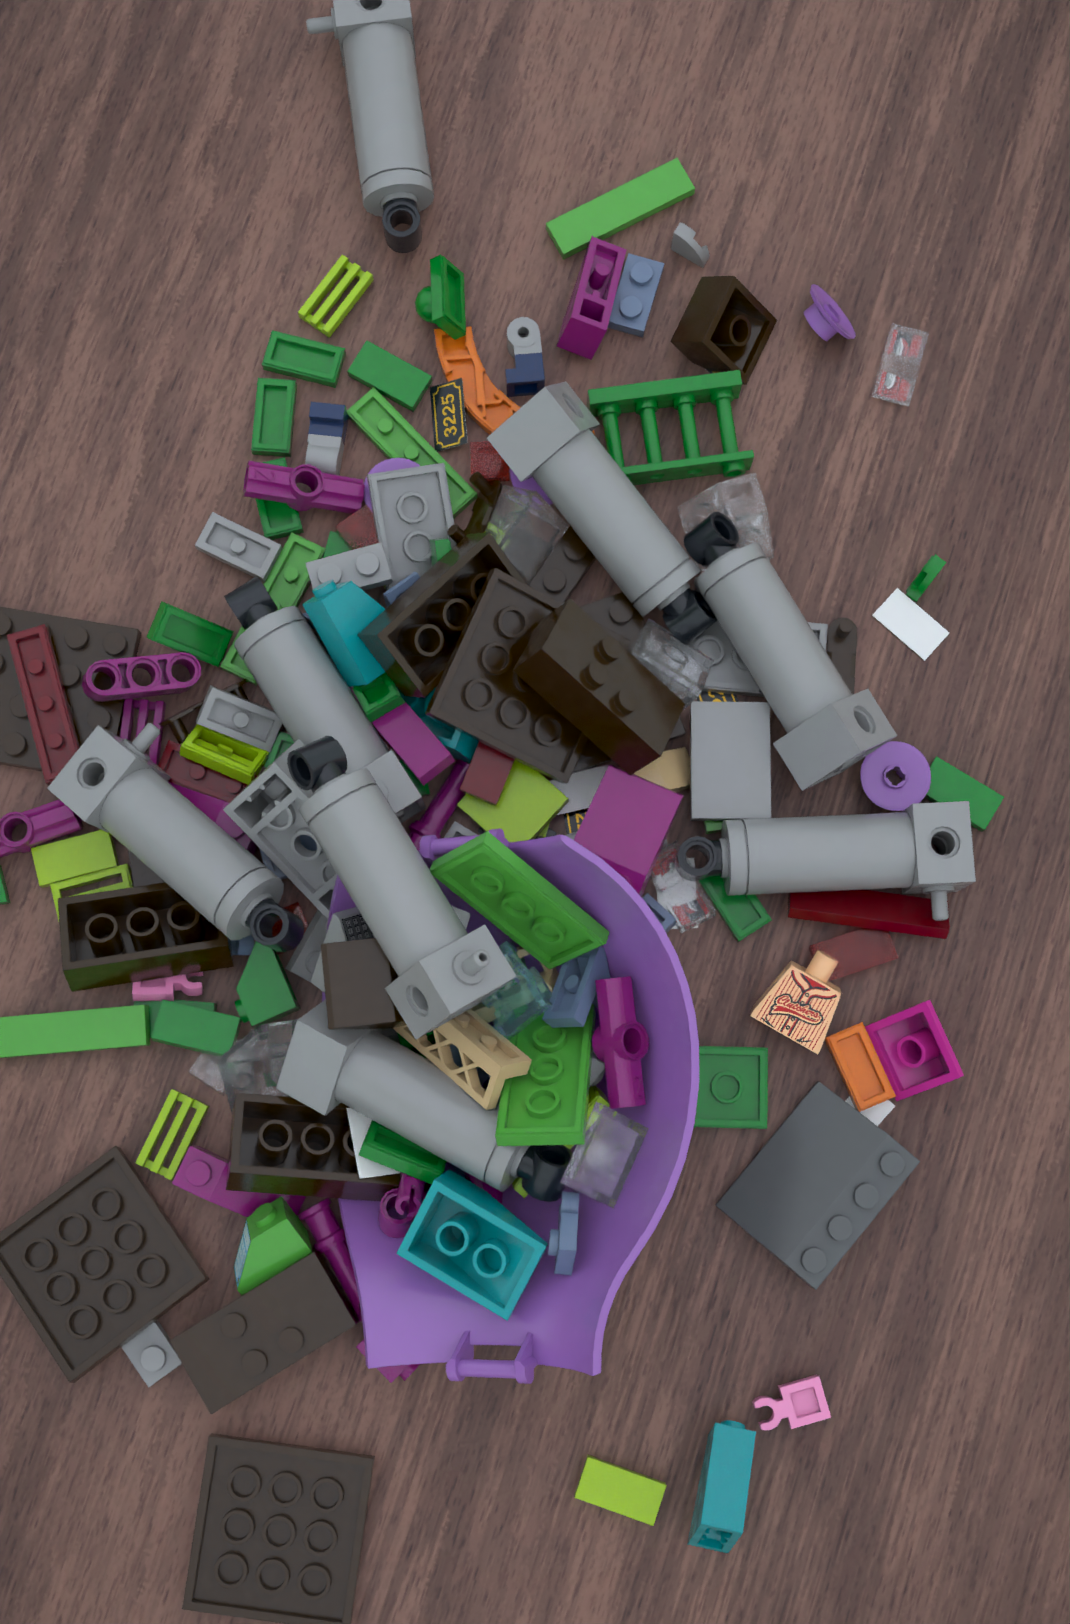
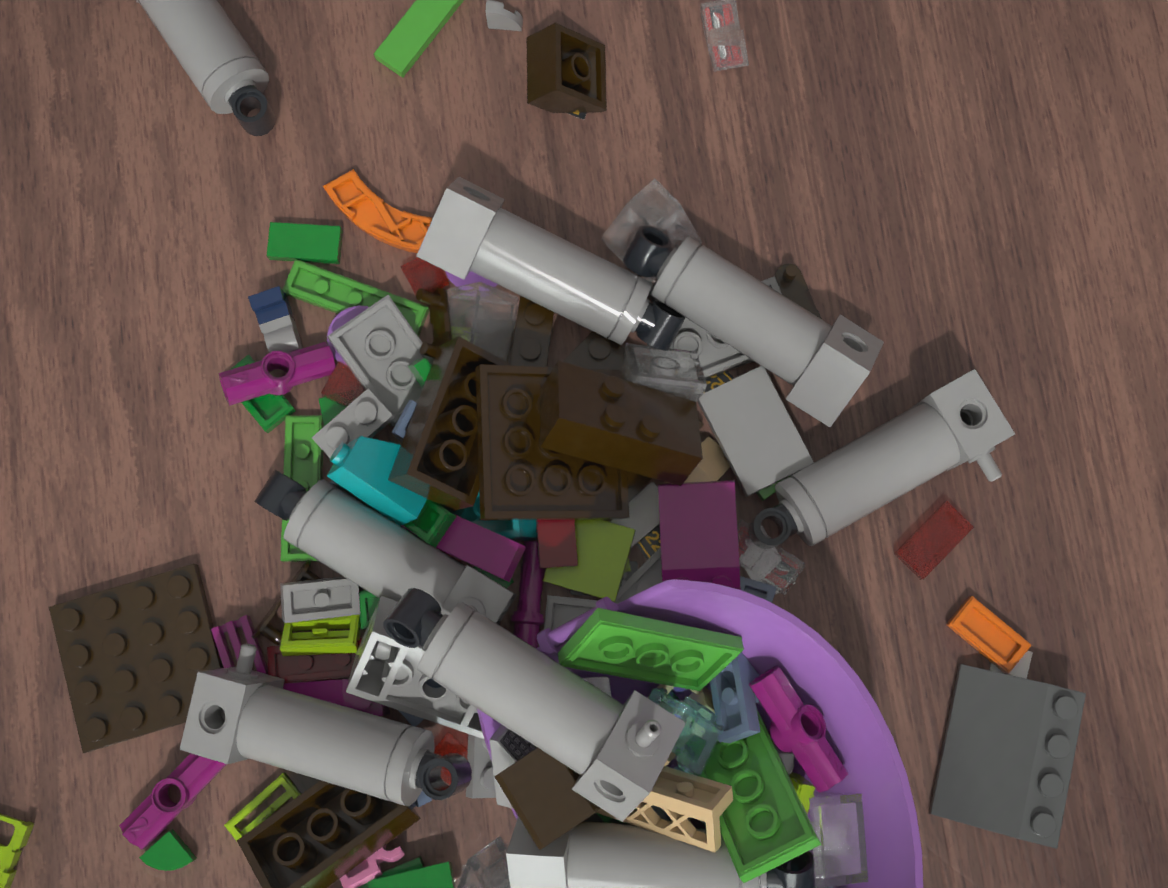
camera: 25 degrees left, 0 degrees up
(44, 699) = (140, 666): dark red tile -> none
(74, 857) = (233, 792): lime tile -> none
(157, 666) = (228, 590): magenta beam -> none
(189, 634) = (240, 547): green tile -> none
(238, 547) = (246, 450): light grey plate -> none
(264, 989) = (458, 827): green slope -> none
(274, 417) = (222, 324): green tile -> none
(303, 359) = (224, 263): green tile -> none
(353, 270) = (212, 195): lime tile -> none
(444, 299) = (319, 156): green tile -> none
(448, 415) = (371, 252): black sticker -> none
(526, 349) = (410, 167): leg -> none
(592, 299) = (444, 99): magenta slope -> none
(635, 295) = (478, 79): sand blue plate -> none
(683, 395) = (560, 143): green fence -> none
(732, 1087) = (901, 701): green tile -> none
(740, 913) = (825, 556): green tile -> none
(801, 1001) = (915, 605): light nougat torso -> none
(826, 316) = (645, 23): medium lavender piece -> none
(869, 910) = (932, 499): dark red tile -> none
(908, 764) = (902, 362): medium lavender piece -> none
(910, 624) = (840, 243): white sticker -> none
(914, 1050) = (1028, 598): dark pink slope -> none
(925, 577) = (834, 199): green tile -> none
(953, 785) = (948, 363): green tile -> none

